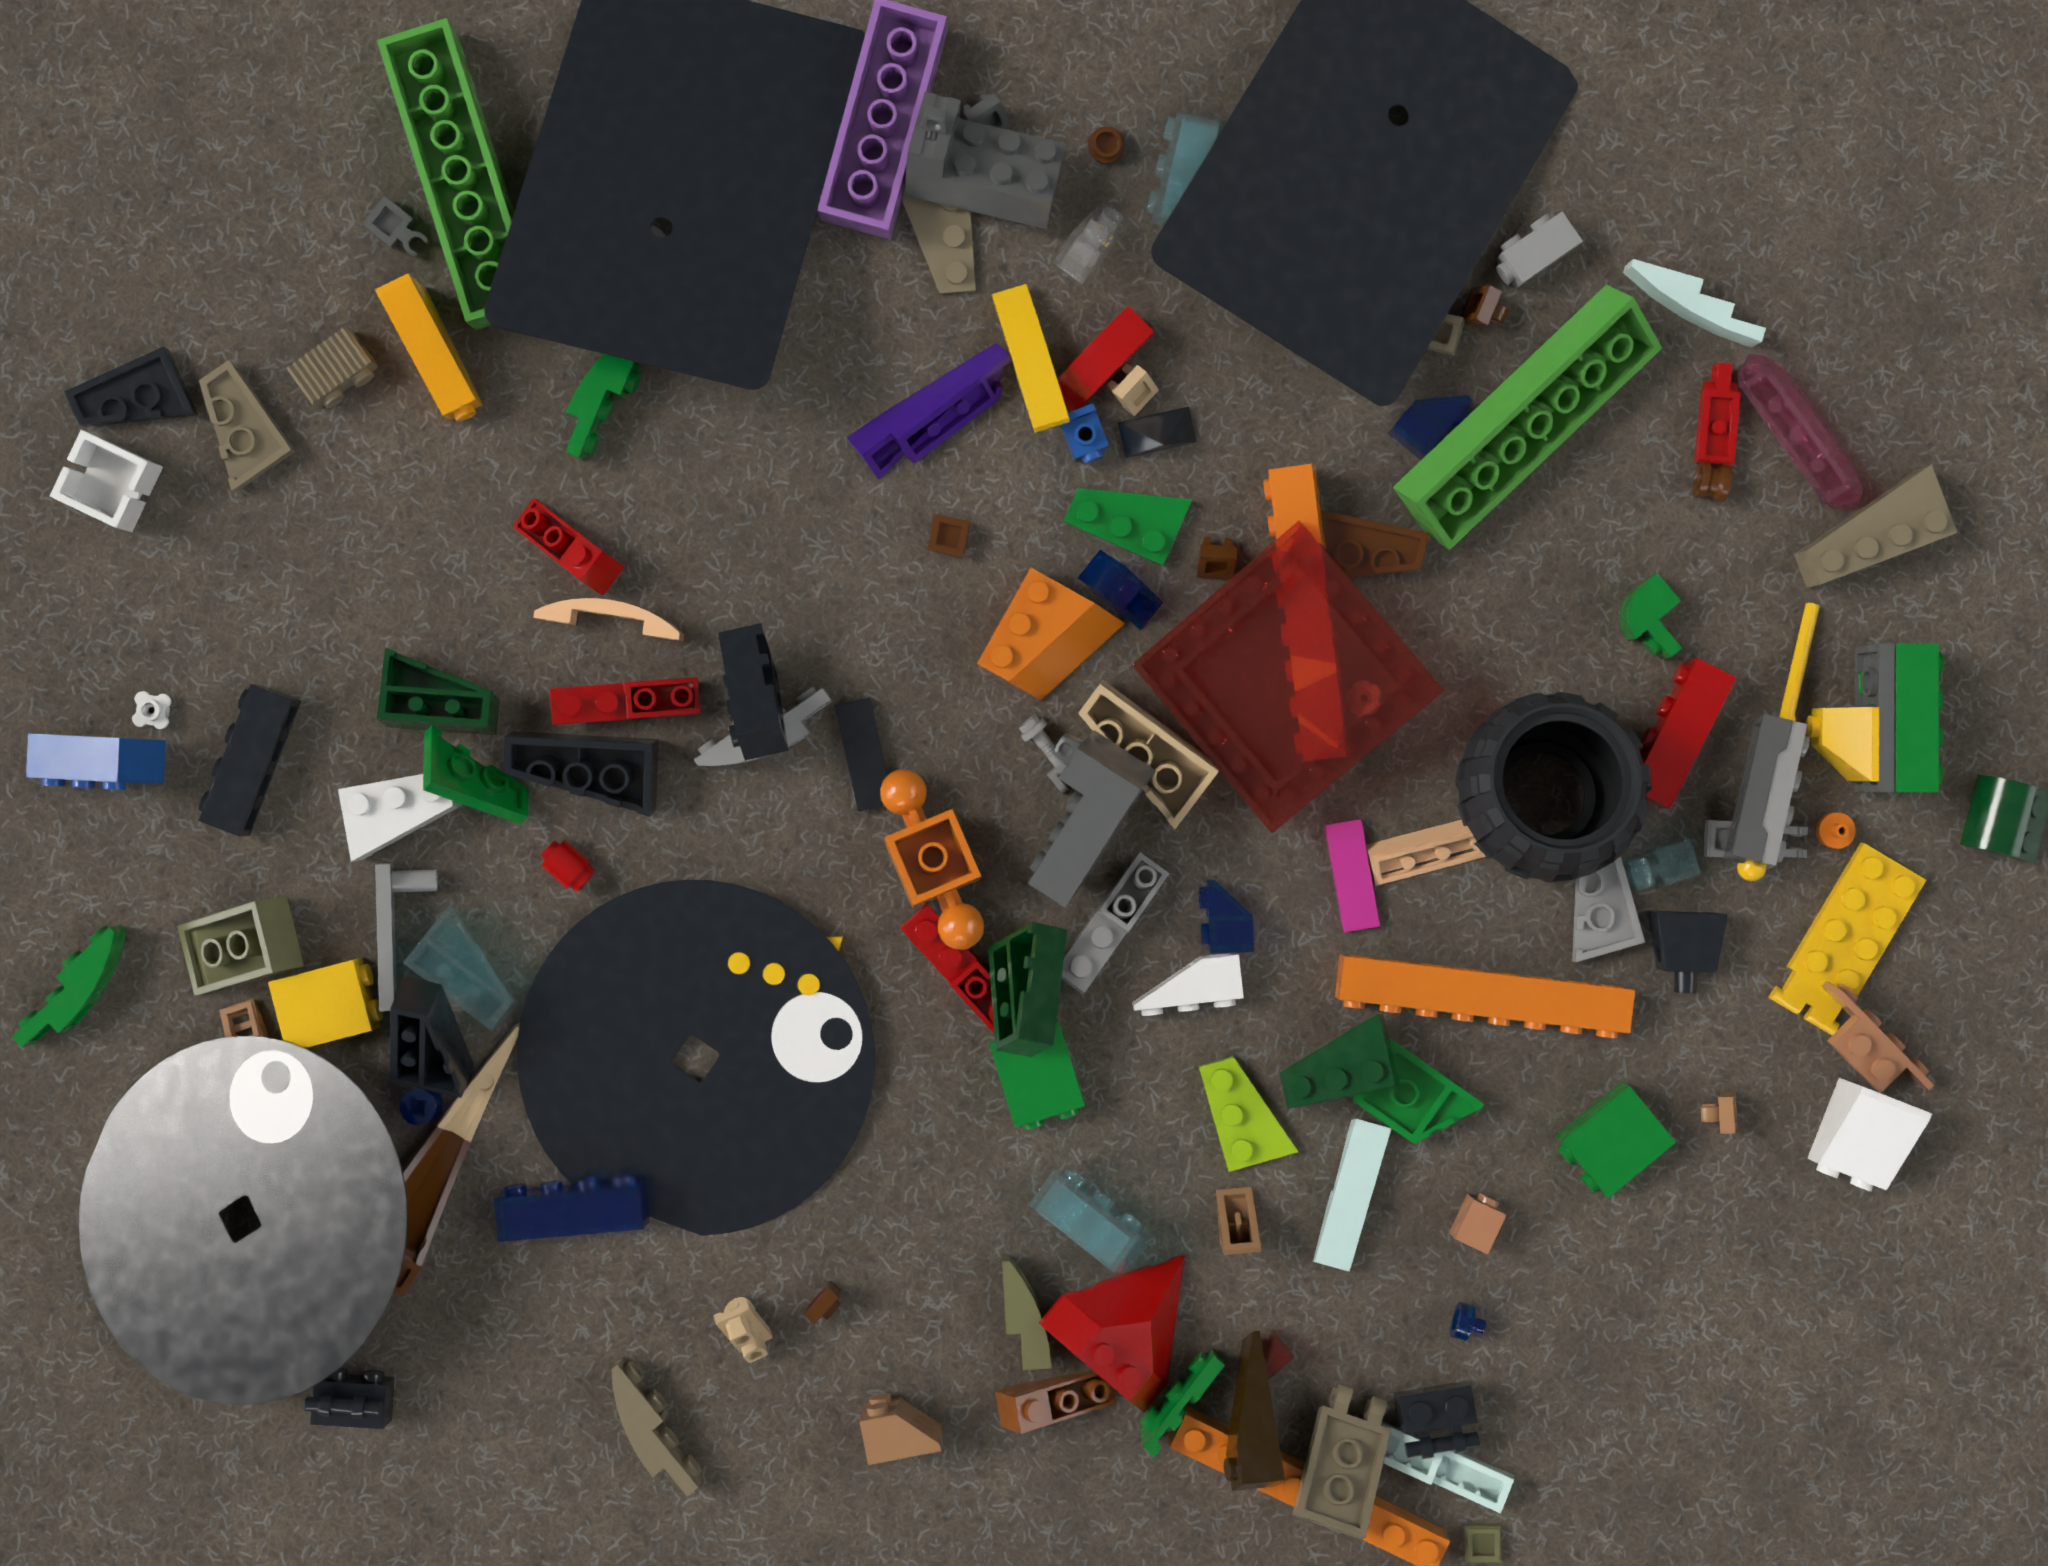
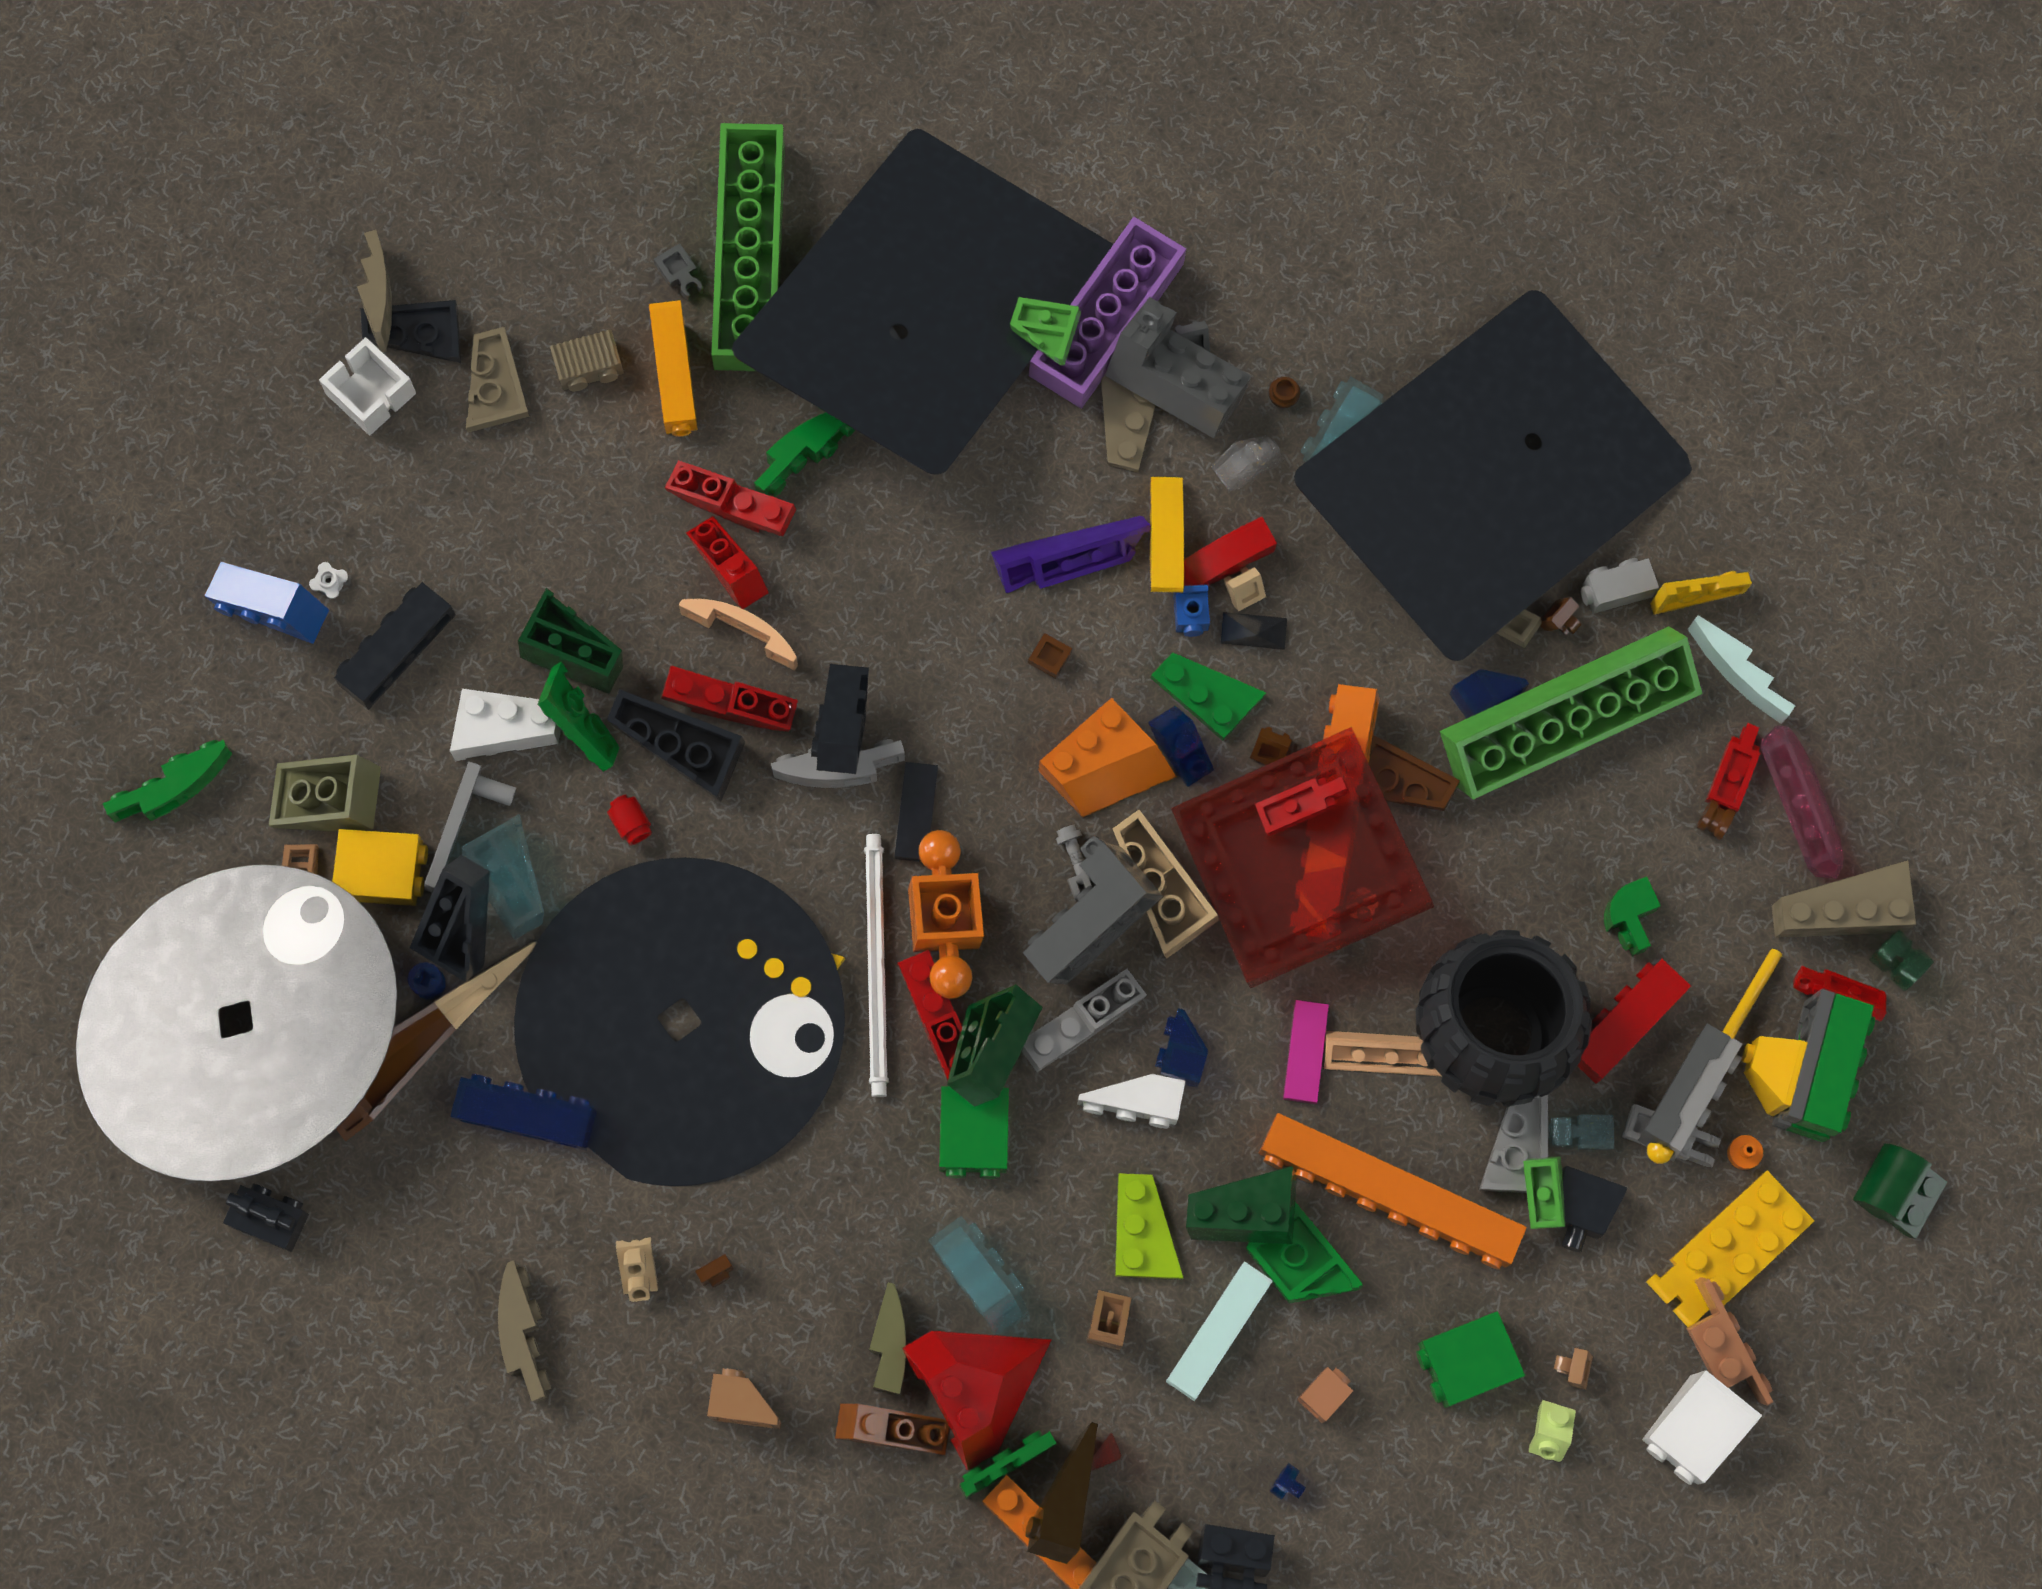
camera: 10 degrees right, 15 degrees down
(75, 372) = (376, 293): none -> dark tan slope
(546, 475) = (730, 501): none -> red slope
(822, 165) = (1046, 326): none -> bright green wing
(878, 932) = (876, 970): none -> white piece
(1269, 624) = (1300, 803): none -> red hinge
(1627, 227) = (1698, 591): none -> yellow wing
(1643, 946) = (1545, 1192): none -> bright green slope
(1717, 1181) = (1552, 1431): none -> yellowish green bracket
(1894, 626) = (1811, 981): none -> red hinge
(1961, 573) = (1907, 971): none -> clear green wheel

